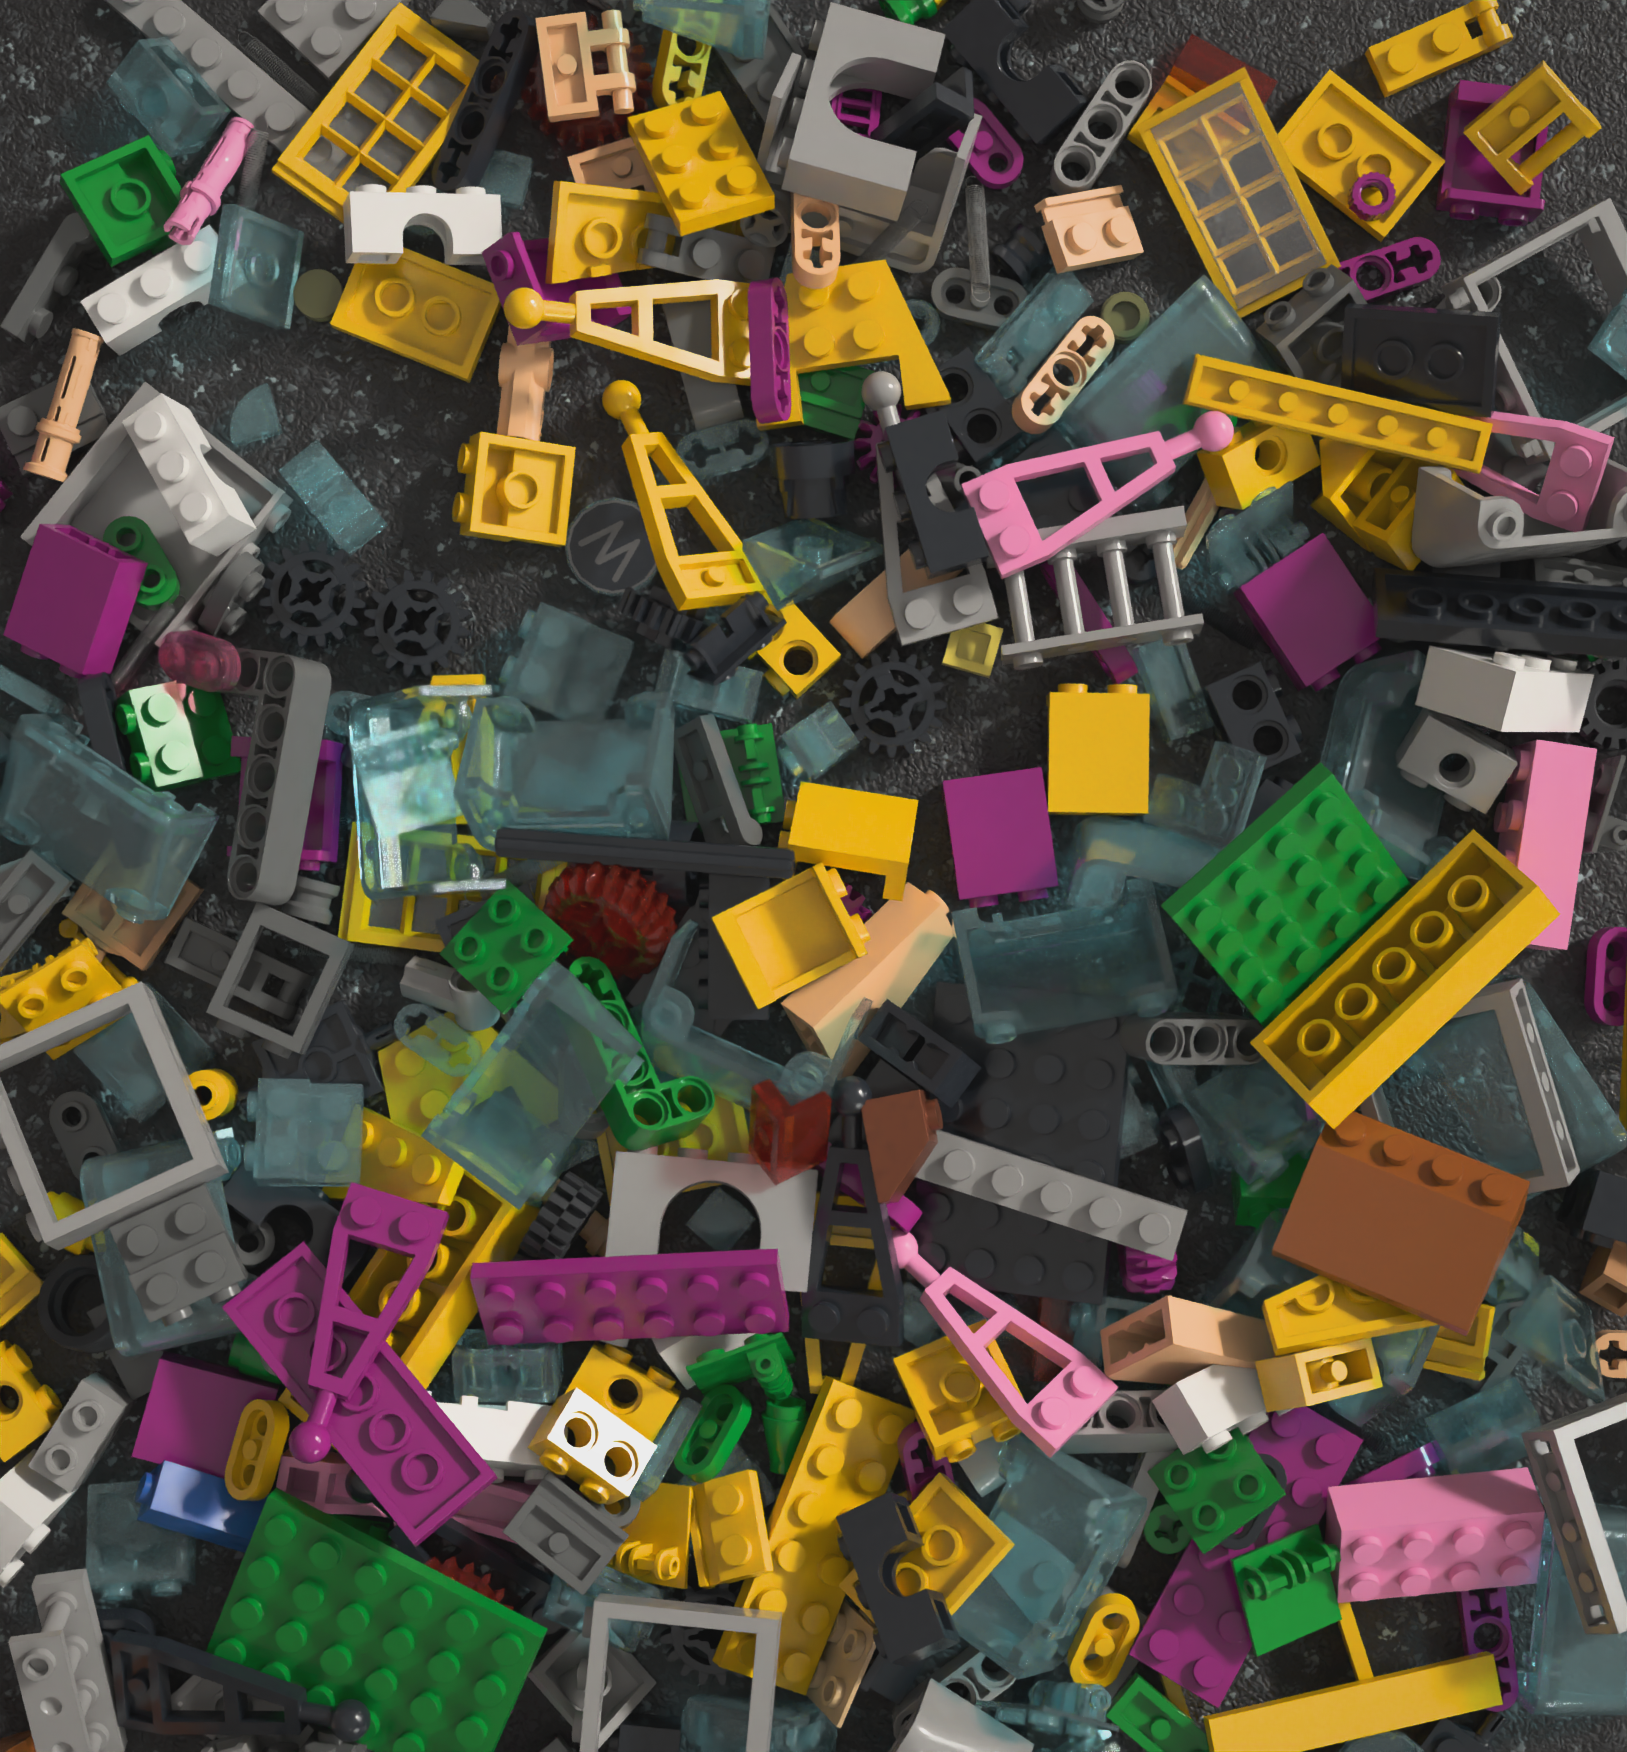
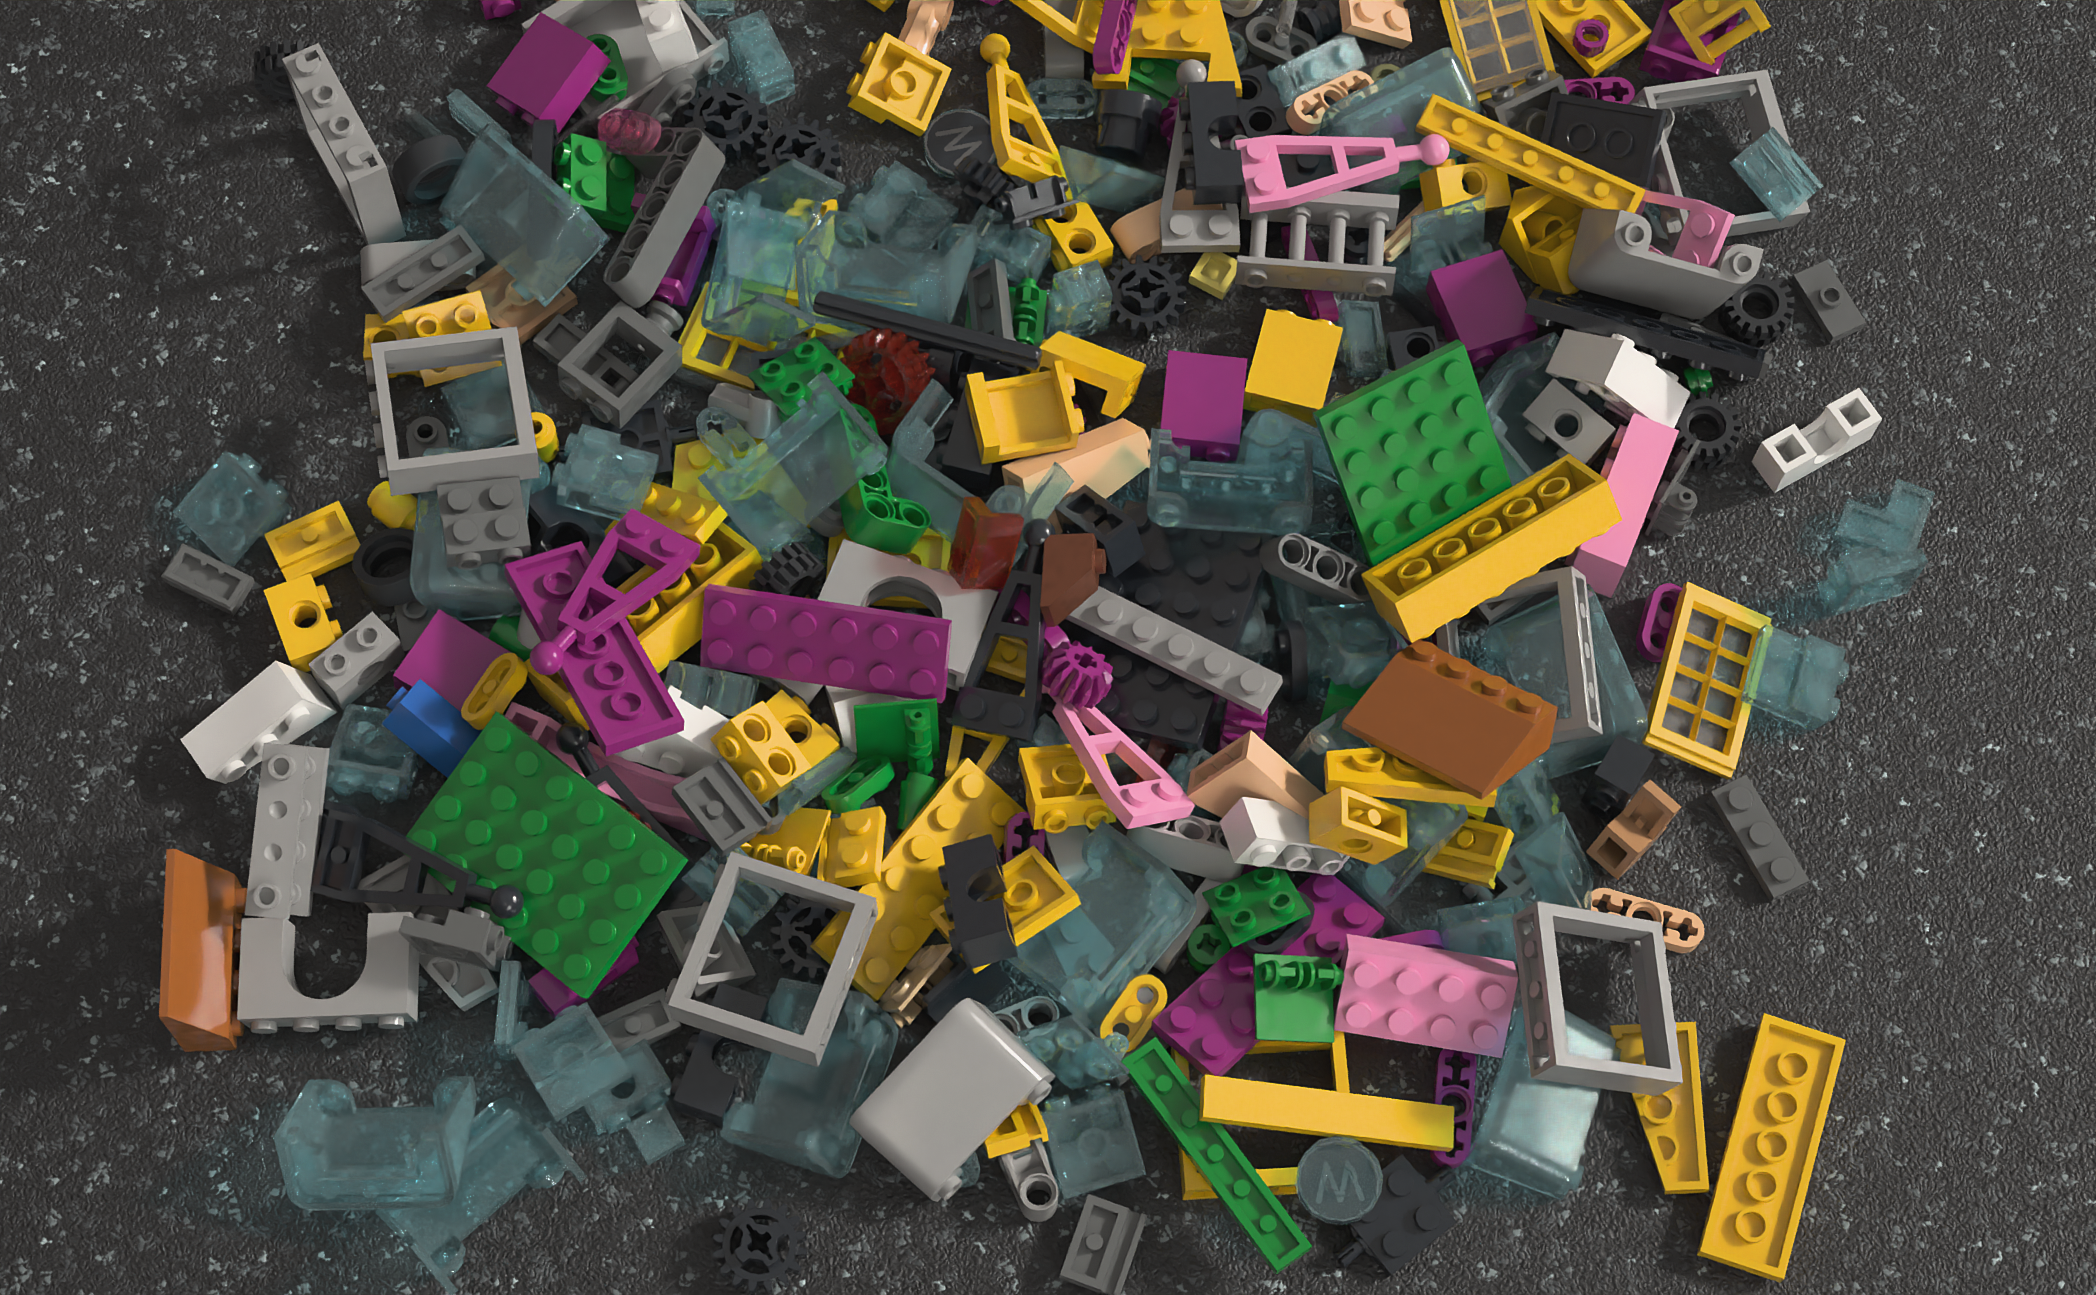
camera: 10 degrees right, 20 degrees down
(939, 1255) = (1077, 675): none -> magenta gear

